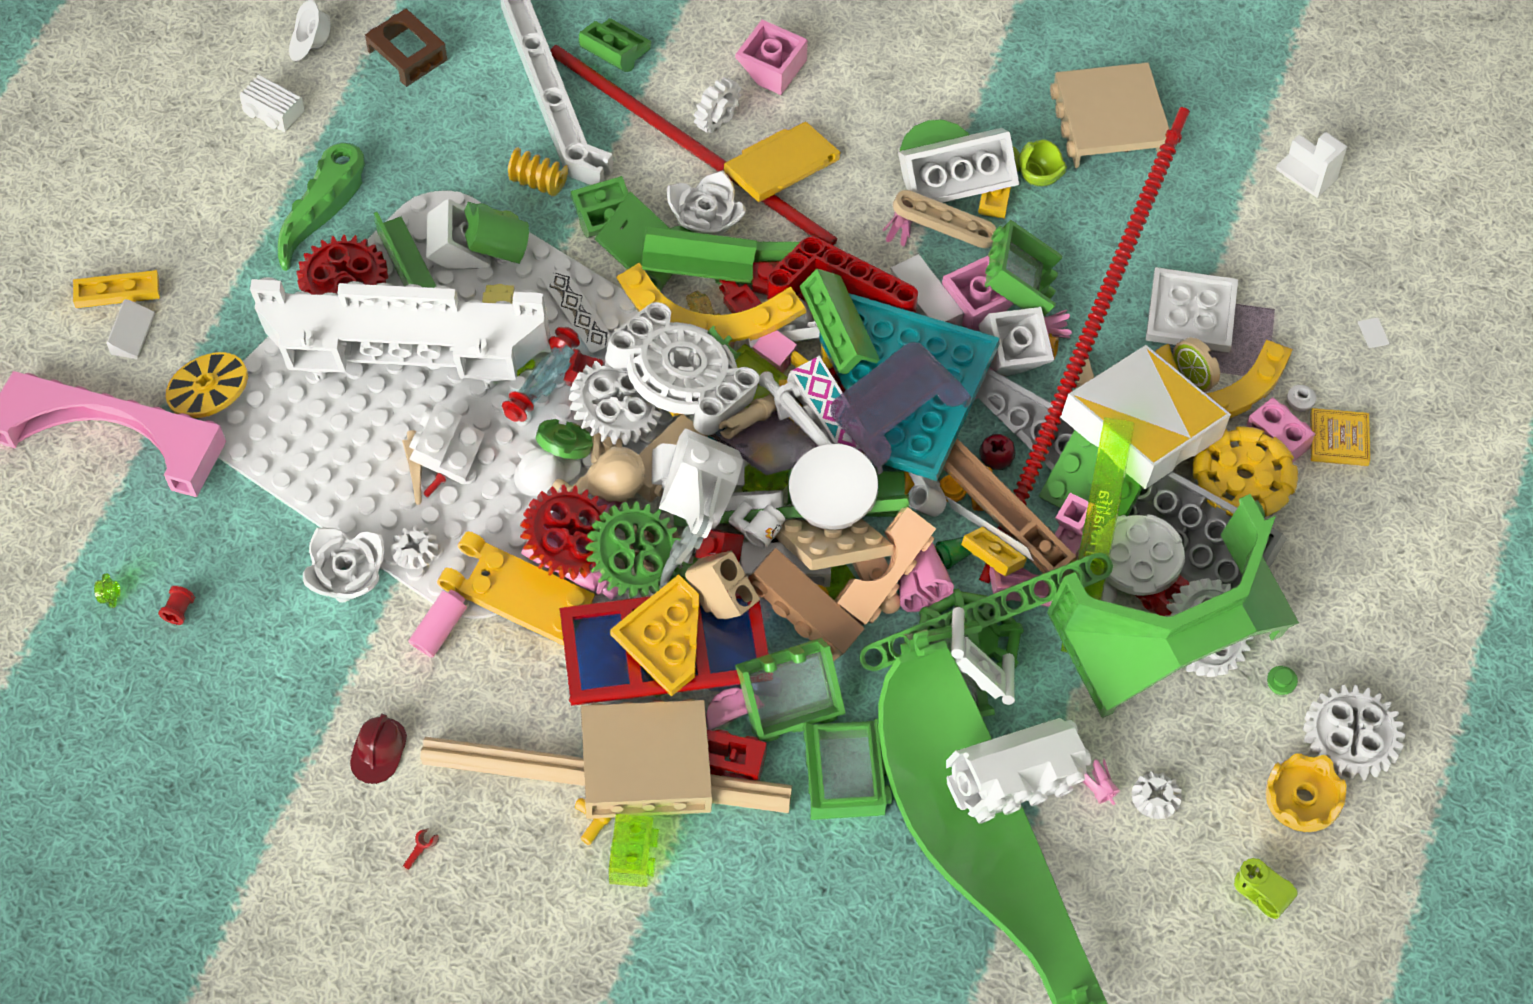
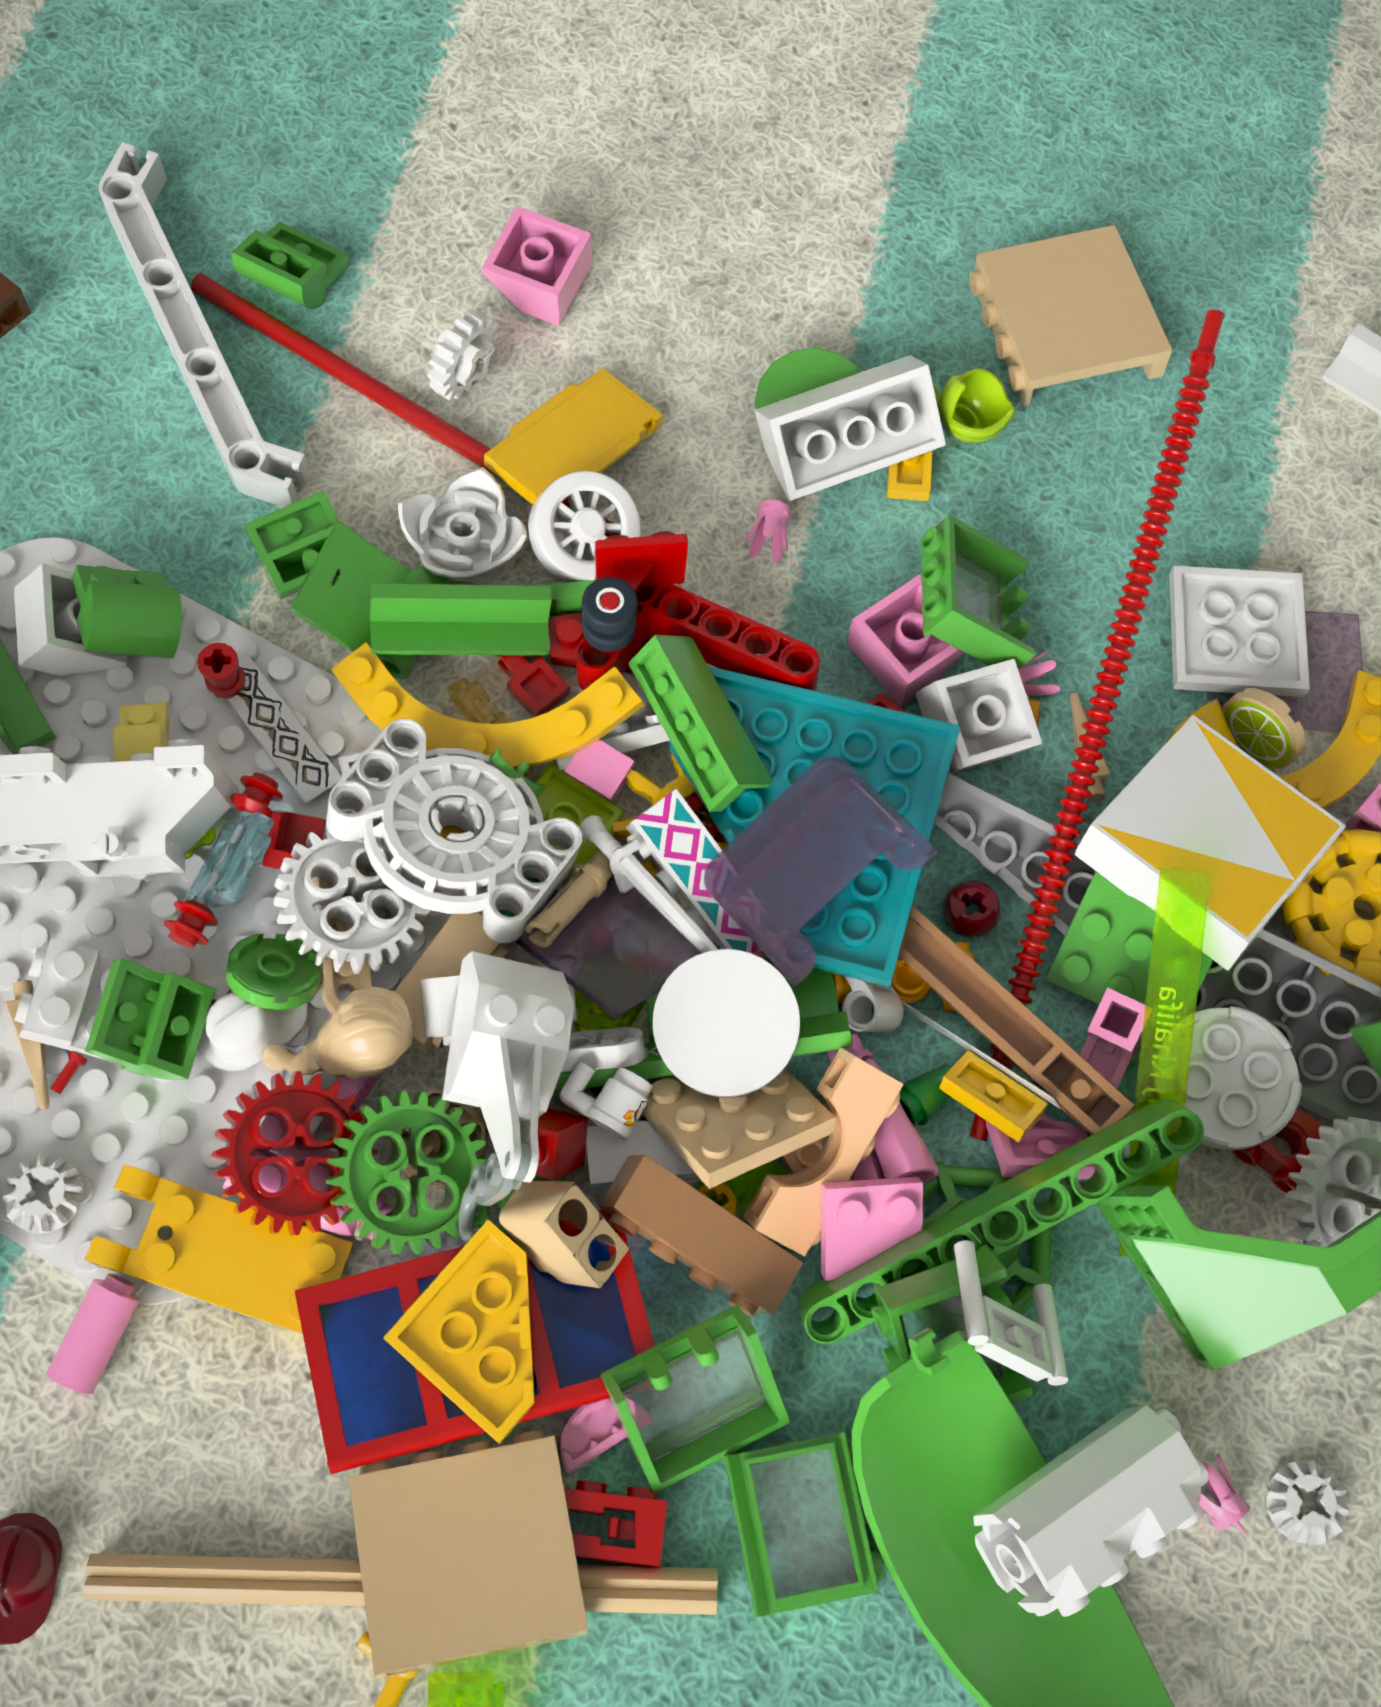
camera: 10 degrees left, 10 degrees up
(487, 459) = (150, 1021): none -> bright green brick
(535, 173) = (187, 497): yellow piece -> none
(548, 269) = (217, 658): none -> red bush
(781, 210) = (581, 524): none -> white wheel
(804, 228) = (620, 570): none -> plate
(905, 606) = (866, 1220): none -> bright pink wing
(932, 296) = (845, 663): white brick -> none
(944, 218) = (839, 515): tan plate -> none

